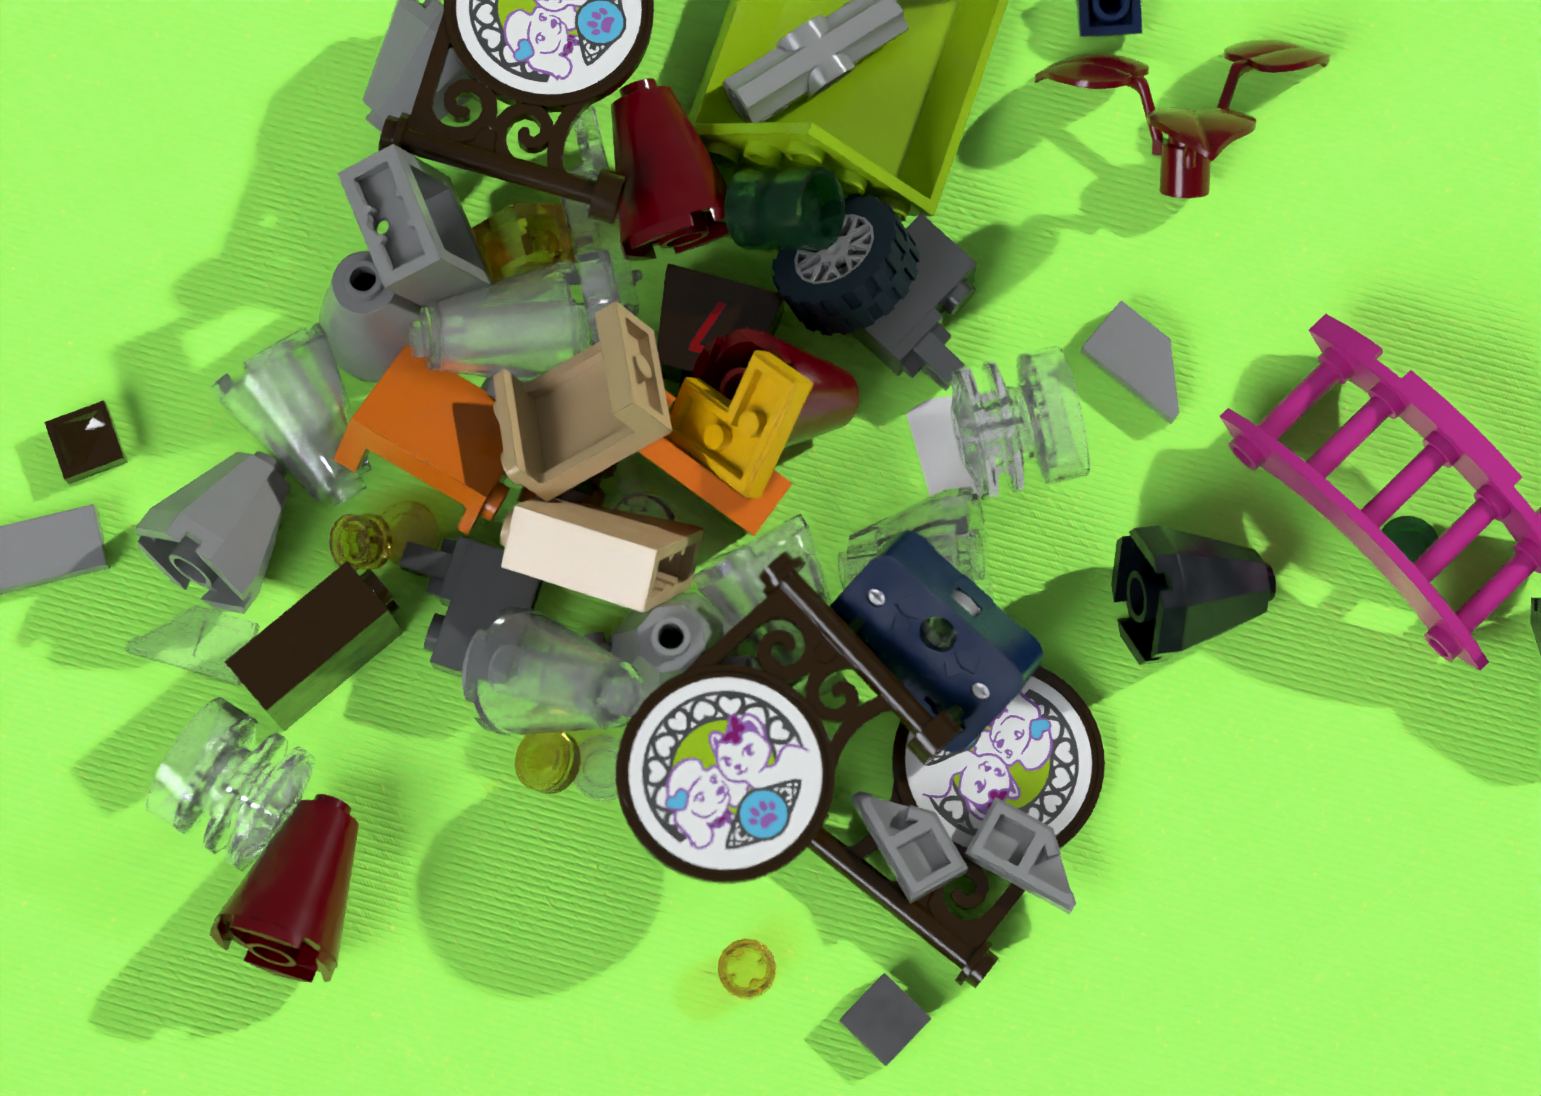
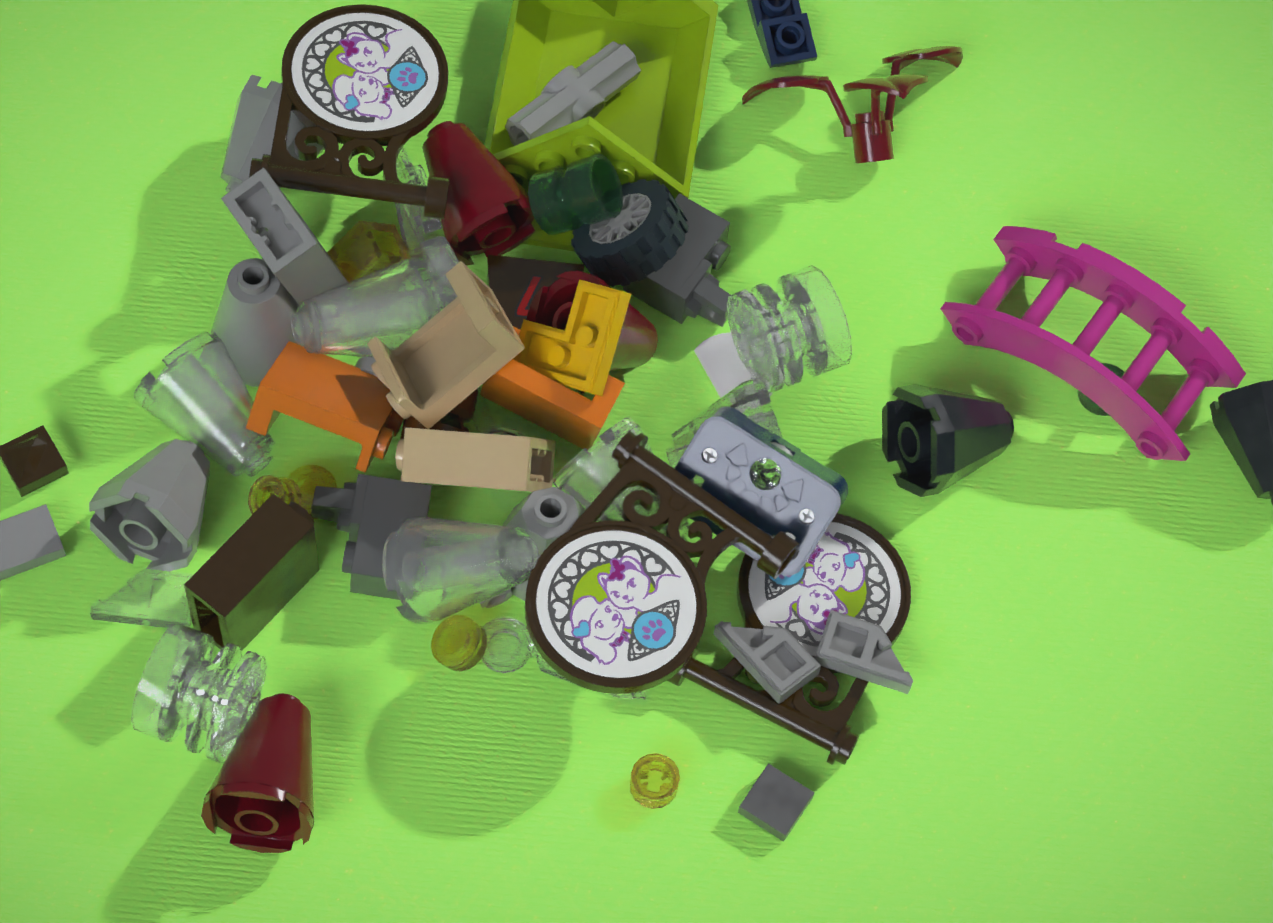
camera: 20 degrees left, 15 degrees down
(1136, 358) = (866, 284): light grey tile -> none

